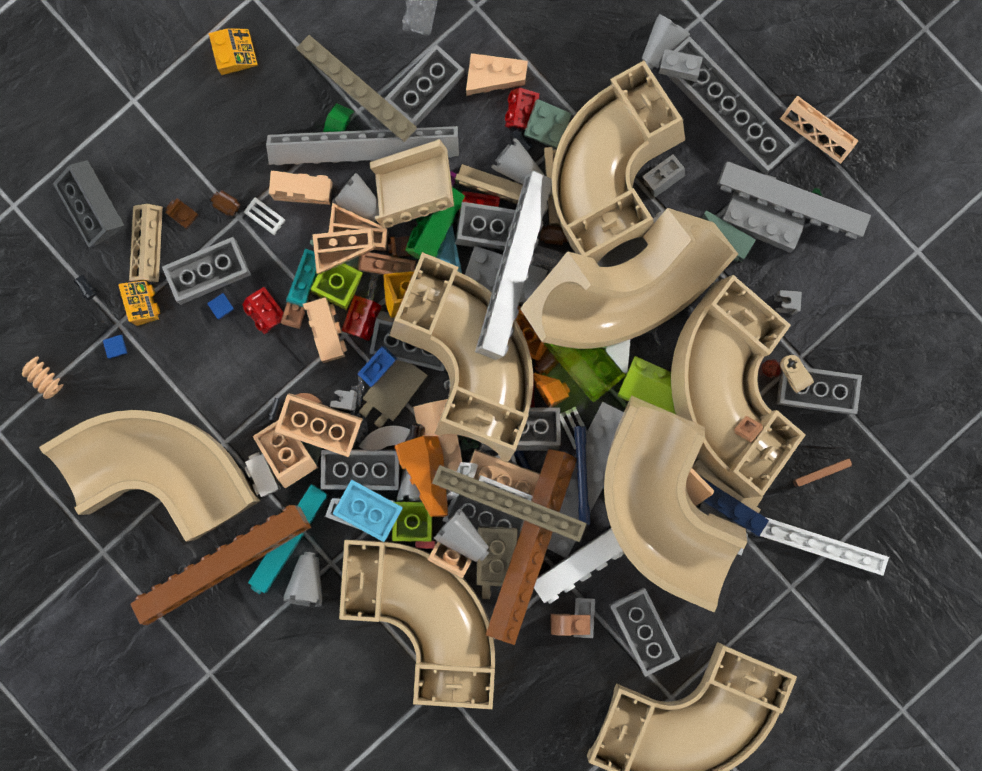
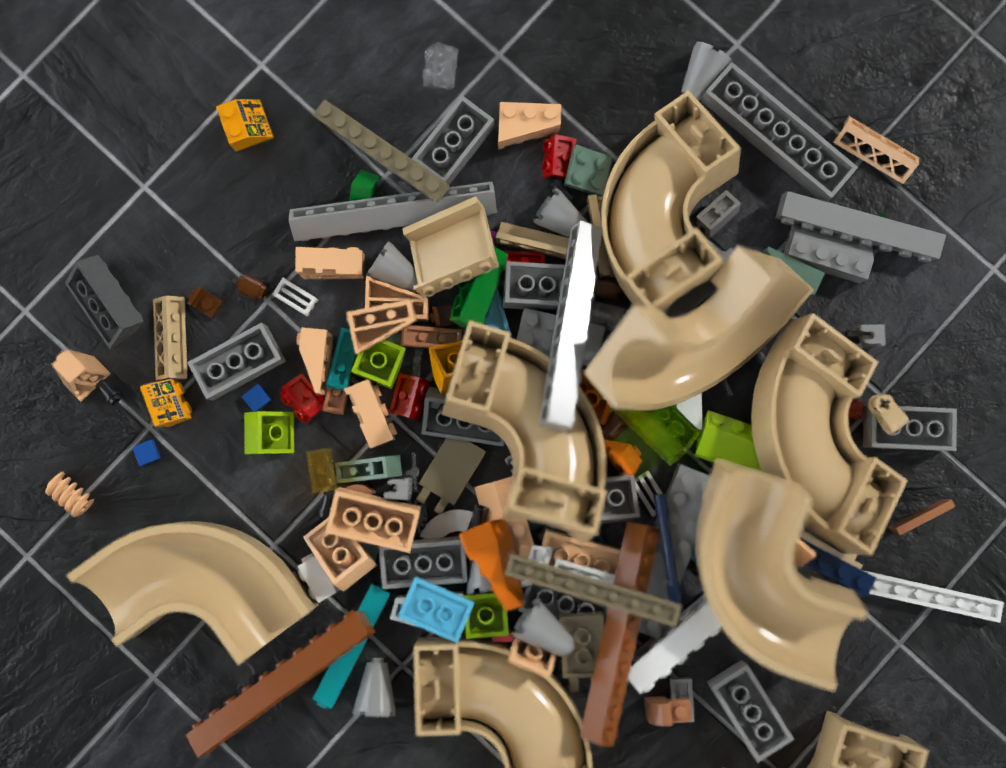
camera: 10 degrees left, 0 degrees up
(61, 268) = (79, 372): none -> light nougat wedge
(229, 338) = (269, 432): none -> lime slope
(275, 377) = (321, 470): none -> clear yellow brick
(280, 267) = (316, 353): none -> light nougat slope
(317, 380) = (368, 469): none -> sand green slope
(377, 366) = (431, 448): blue plate -> none
(680, 65) = (727, 92): light grey brick -> none
(748, 429) = (848, 481): nougat plate -> none

